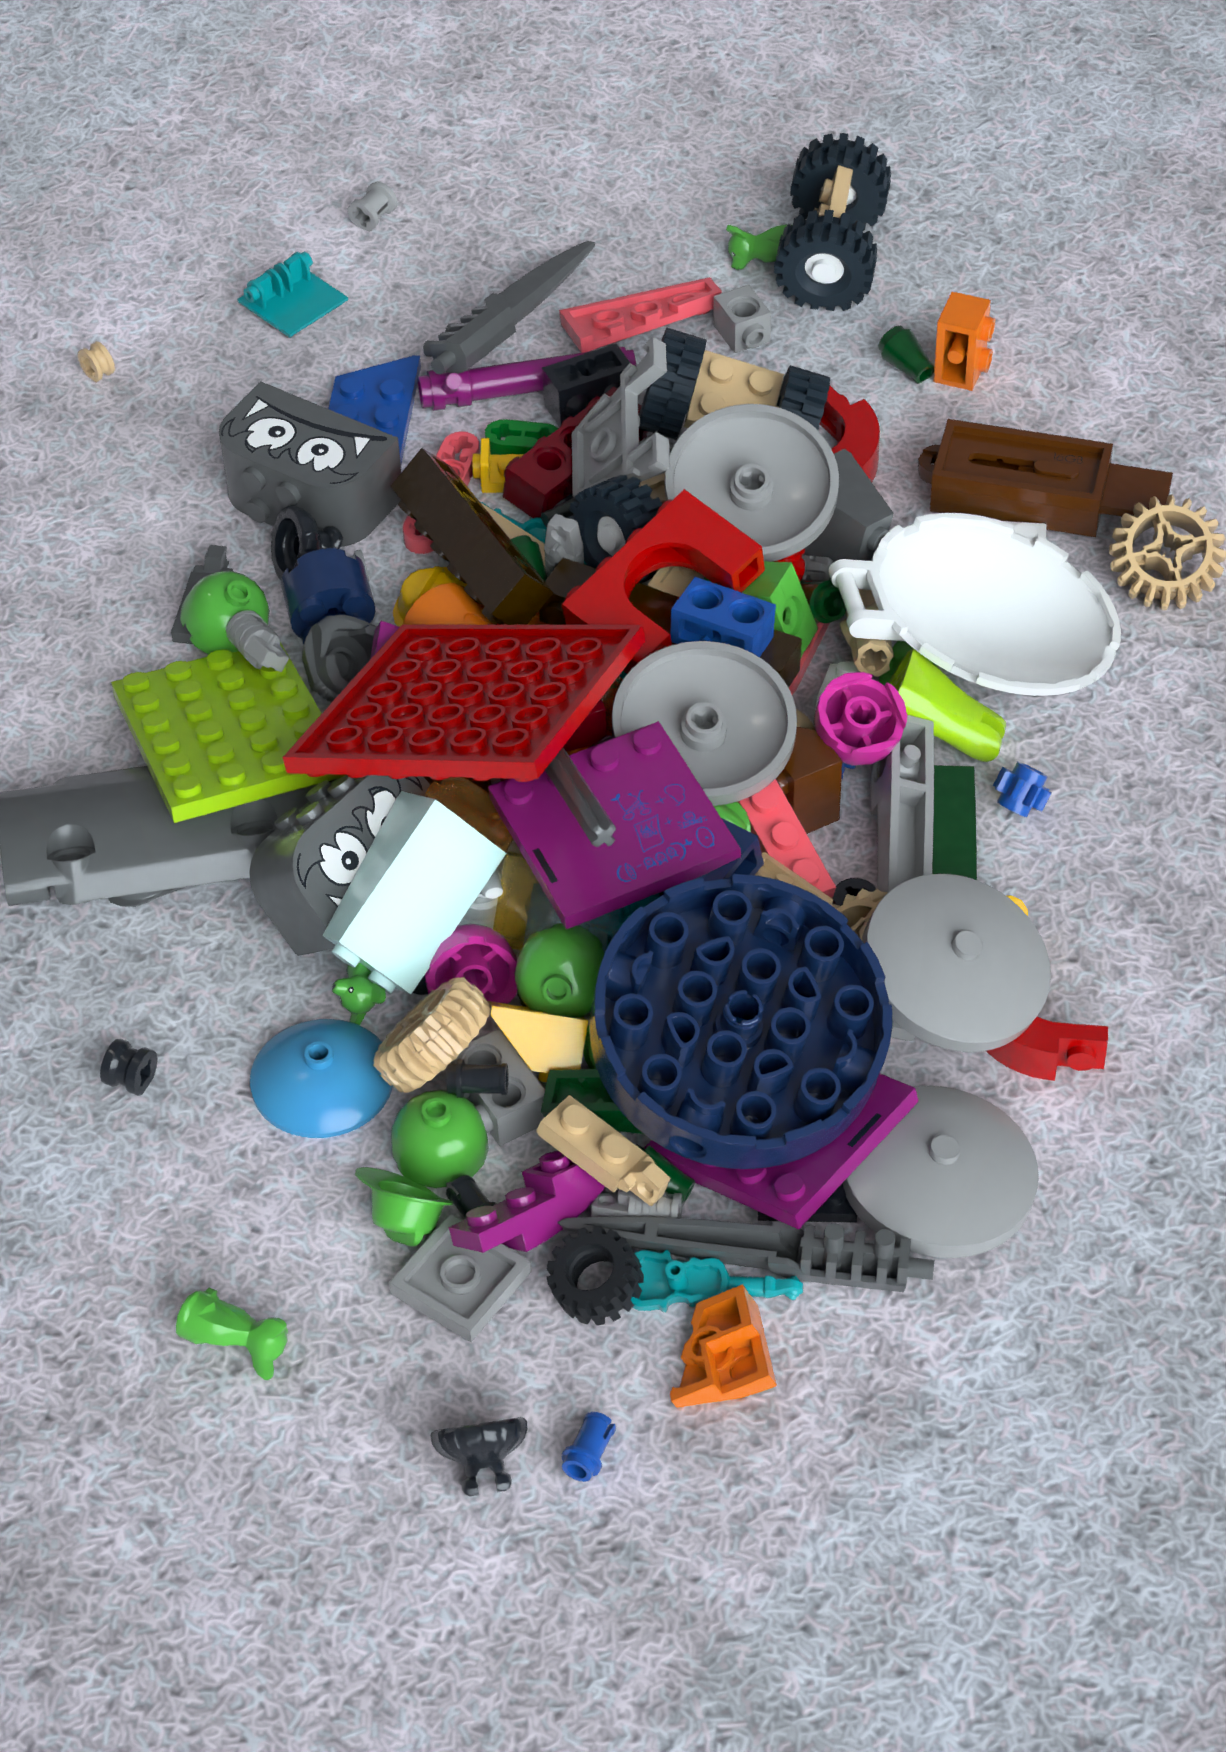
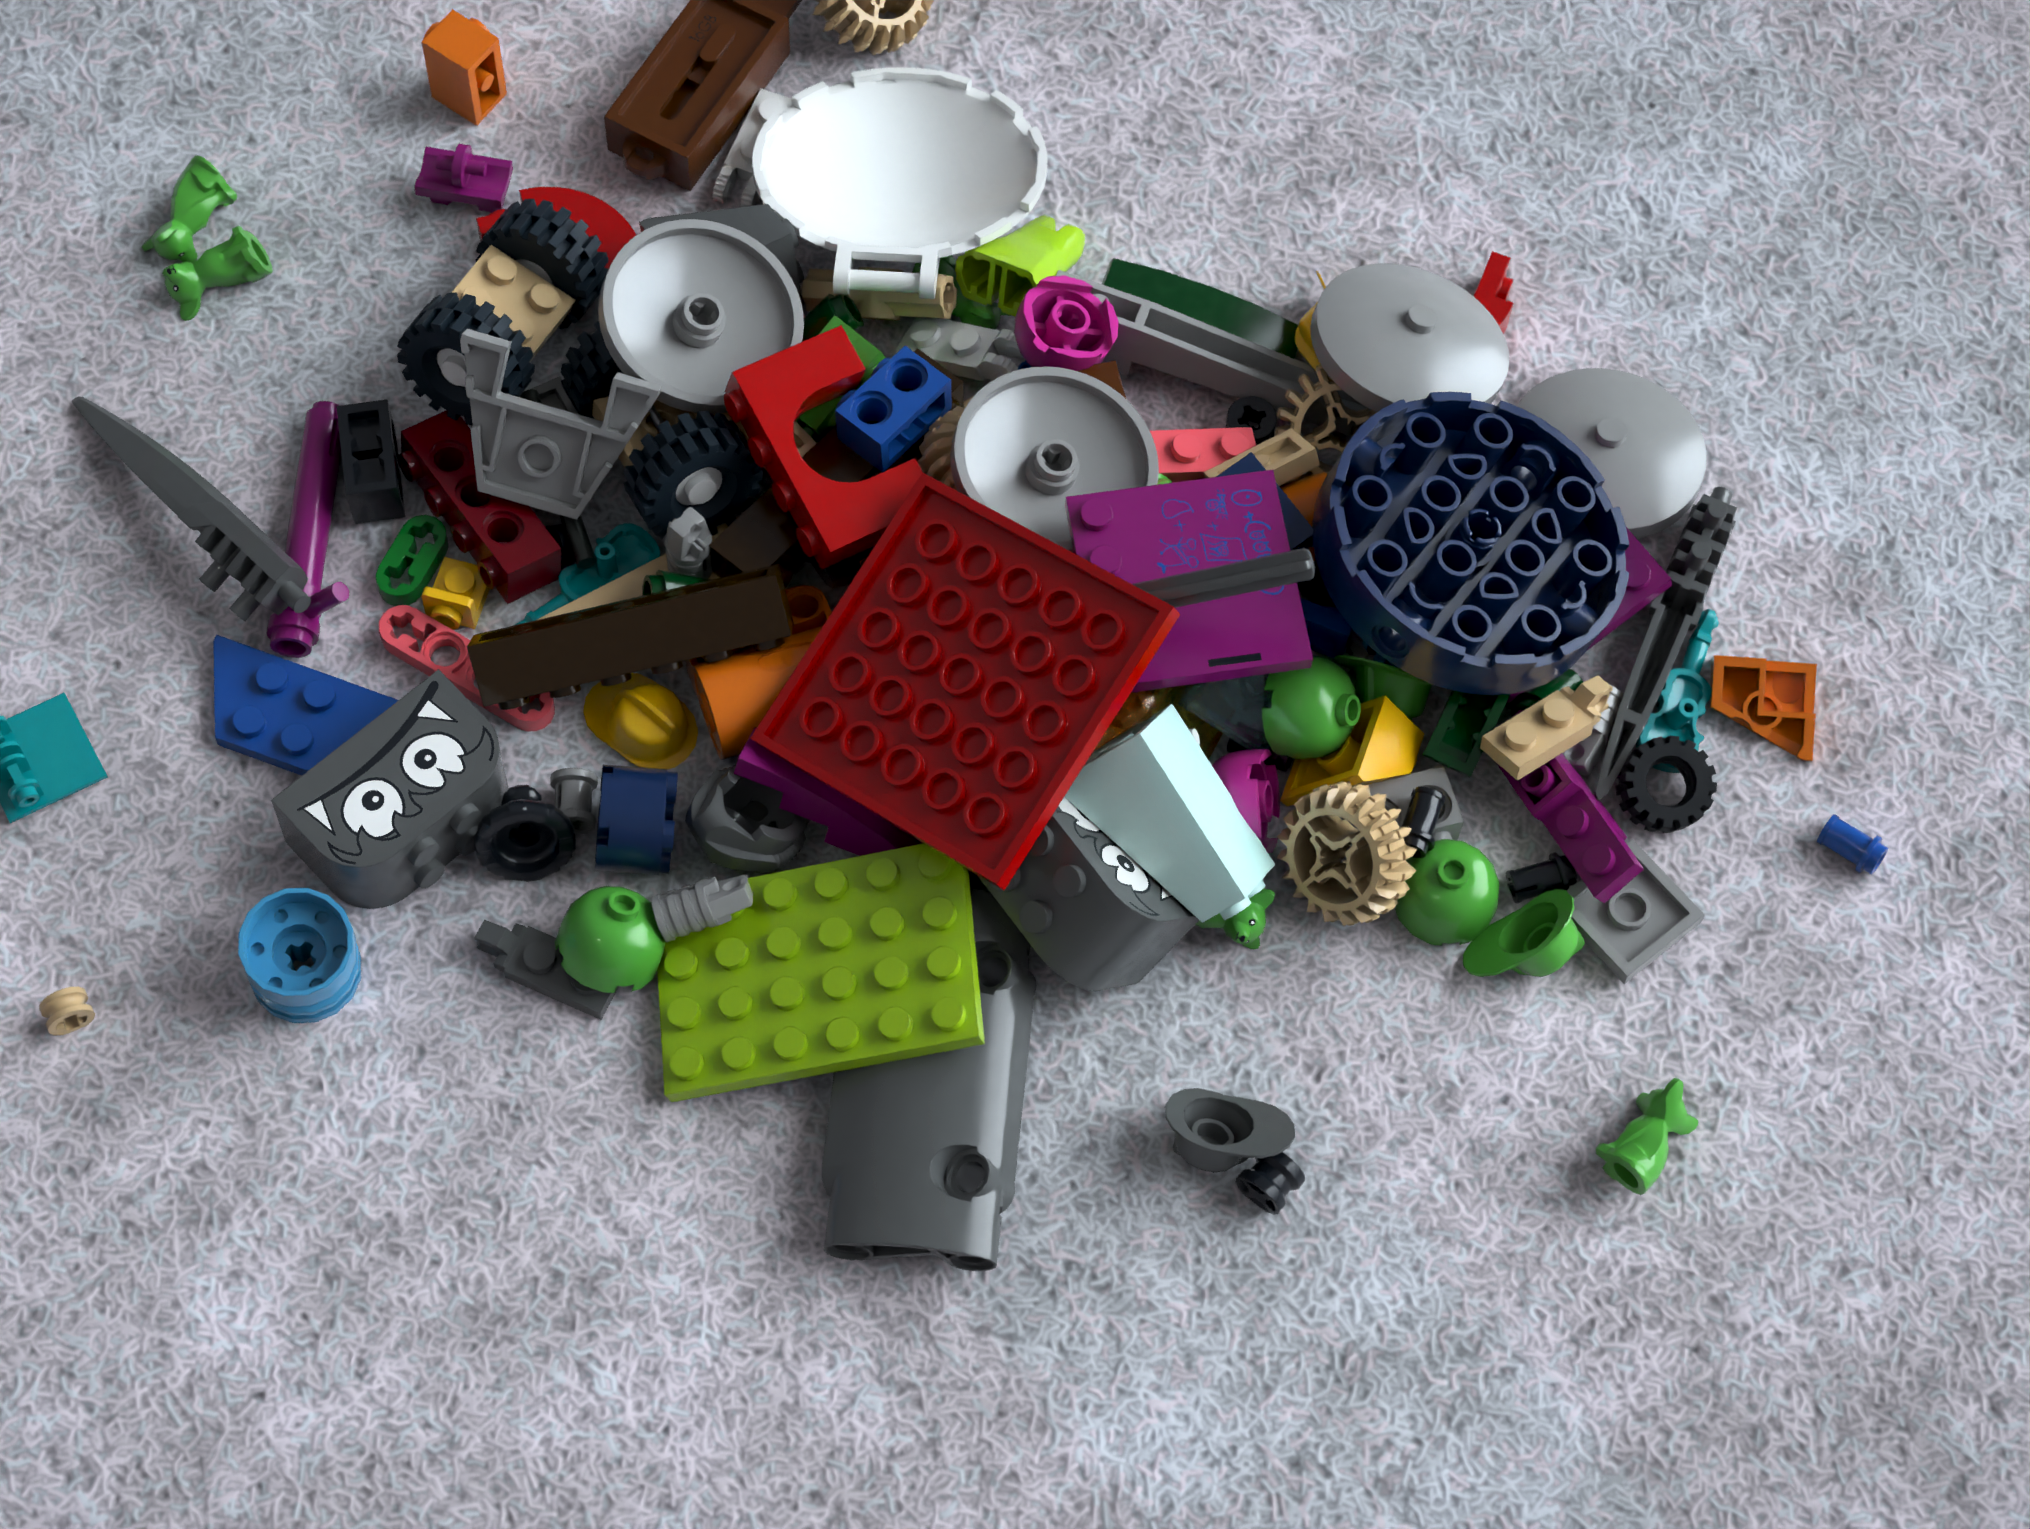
camera: 80 degrees left, 15 degrees up
(160, 451) = (293, 928): none -> dark azure wheel
(162, 1015) = (1225, 1130): none -> dark grey piece
(319, 1095) = (1316, 1020): dark azure dish -> none
(481, 1448) = (1842, 932): black hair -> none
(626, 316) = (250, 385): coral wing -> none
(727, 270) = (225, 265): none -> bright green animal
(741, 318) = (300, 260): light grey brick -> none
(837, 191) = (157, 109): black plate -> none
(867, 374) = (464, 178): none -> magenta hips
(904, 352) = (435, 131): dark green cone -> none
(1022, 789) = (1146, 229): blue gear -> none

